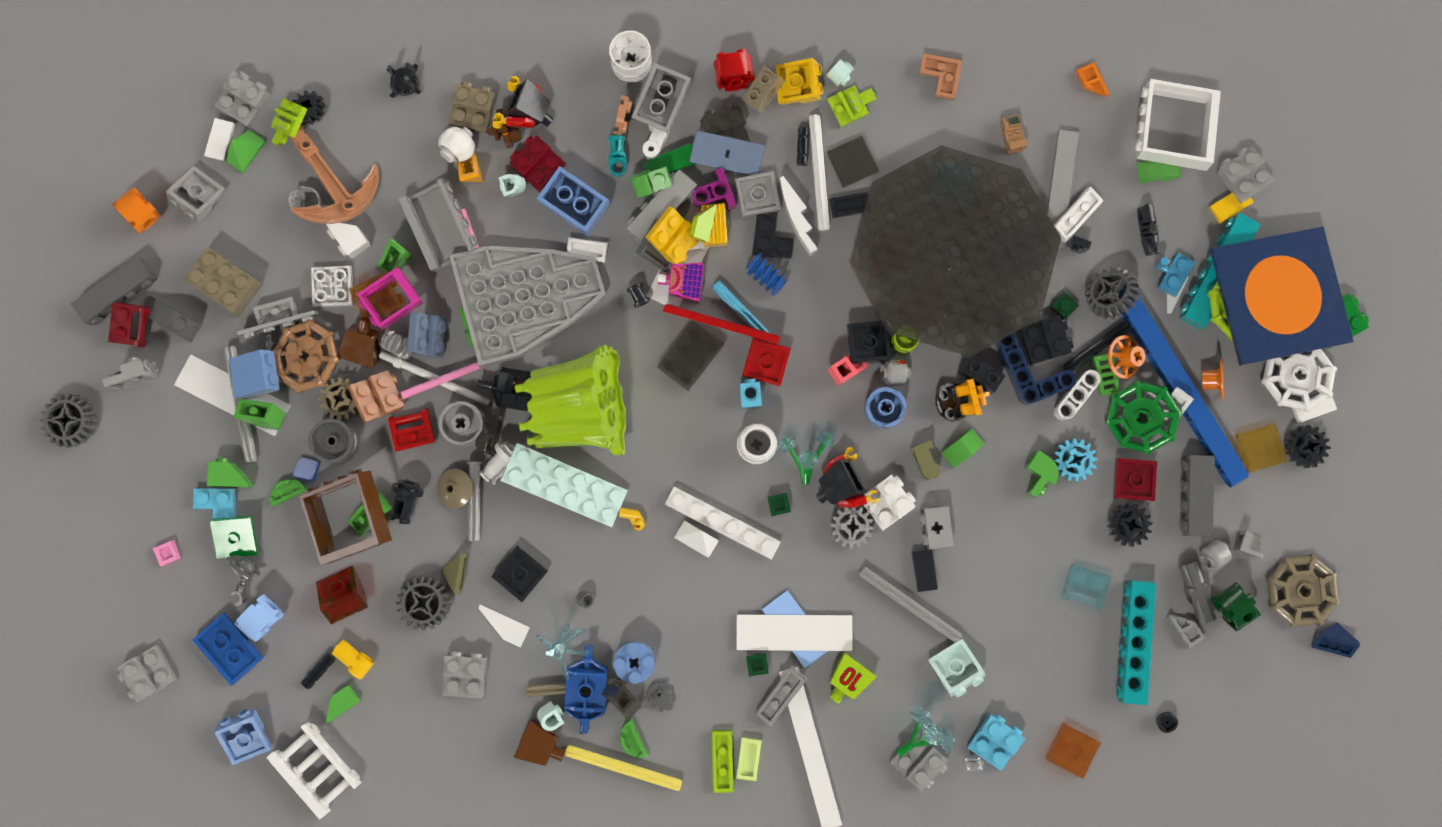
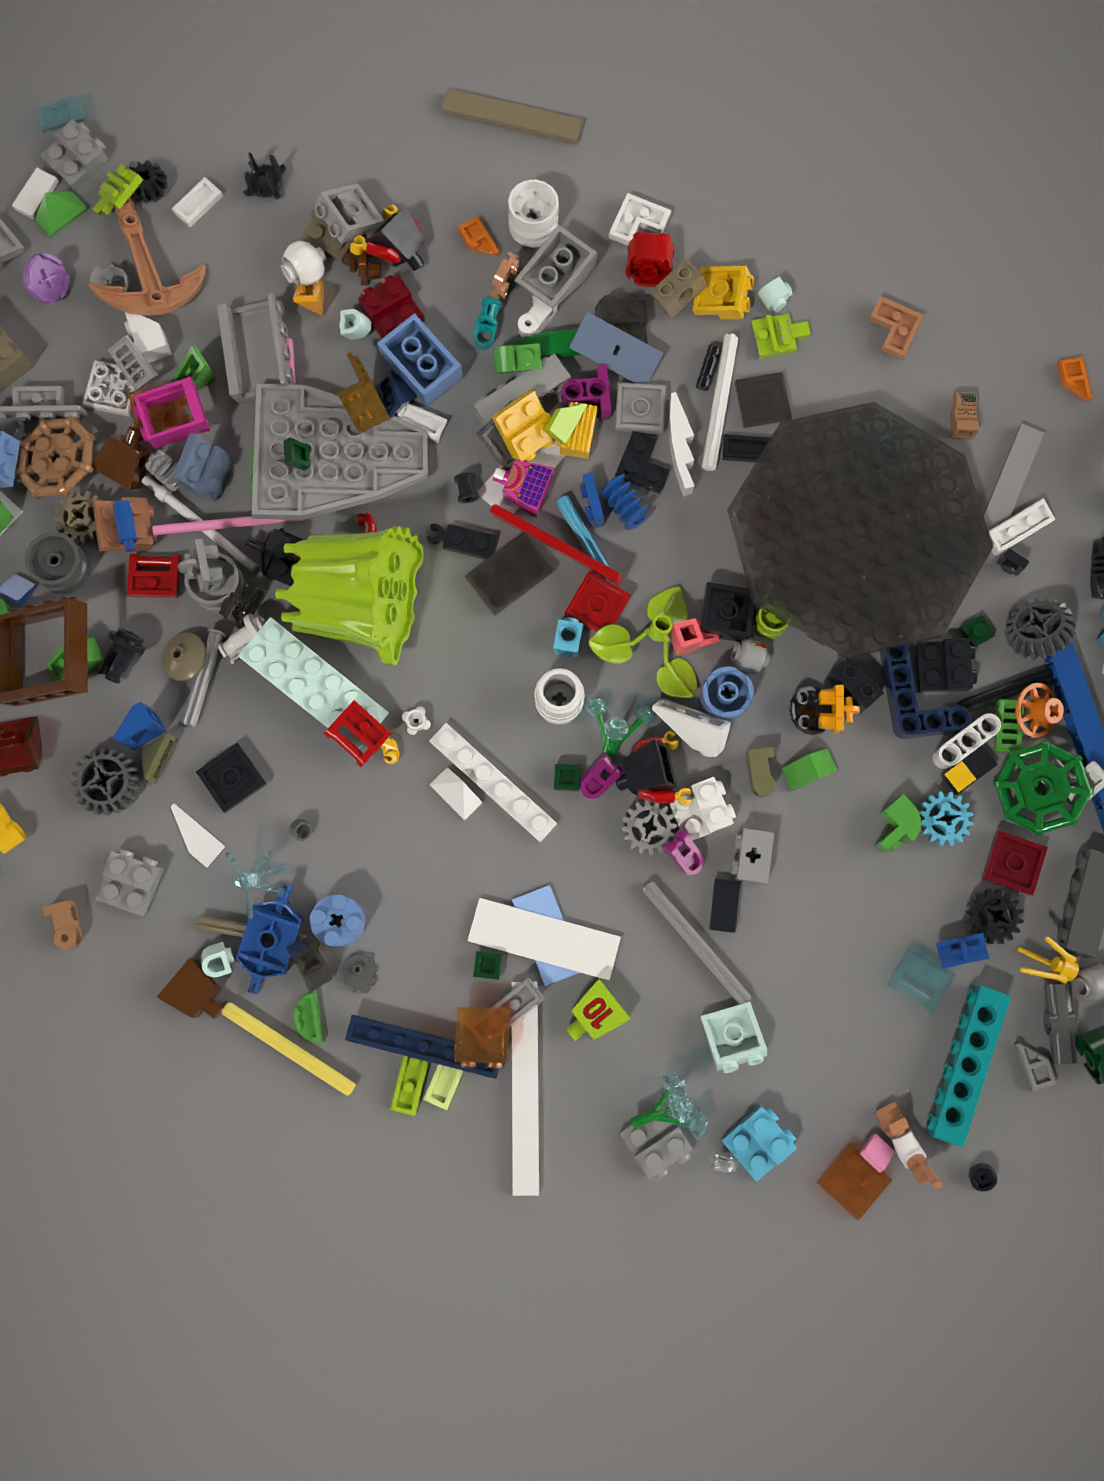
camera: 20 degrees right, 5 degrees down
(221, 66) = (61, 112): none -> clear light blue plate
(252, 211) = (45, 278): none -> medium lavender tile
(348, 259) = (136, 383): none -> light grey slope
(354, 113) = (197, 202): none -> white tile
(380, 398) = (125, 524): none -> blue cylinder
(425, 719) = (66, 924): none -> medium nougat leg
(438, 554) = (139, 726): none -> blue tile
(456, 423) = (202, 555): none -> light grey hips
(482, 96) = (347, 212): none -> light grey plate
(500, 307) = (296, 454): none -> dark green plate
(540, 251) = (362, 399): none -> pearl gold plate
(559, 234) = (394, 393): none -> dark blue slope
(571, 347) = (367, 521): none -> red arm
(590, 85) = (477, 237): none -> orange tile
(611, 508) = (363, 727): none -> red plate
(648, 337) = (464, 541): none -> black plate
(655, 490) = (418, 713): none -> white plate
(714, 32) = (638, 213): none -> white plate
(726, 739) = (410, 1044): none -> dark blue tile
(735, 273) = (593, 510): none -> blue plate
(769, 720) = (482, 1036): none -> clear orange plate
(799, 503) = (593, 784): none -> magenta plate
(823, 353) = (665, 609): none -> lime plant
(869, 440) = (696, 728): none -> white slope
(888, 544) = (690, 859): none -> magenta plate
(1084, 417) = (969, 770): none -> black tile
(1085, 725) = (877, 1153): none -> bright pink tile
(1105, 714) = (906, 1145): none -> nougat piece
(1112, 557) = (962, 950): none -> blue hips
(1190, 550) = (1063, 967): none -> yellow plant

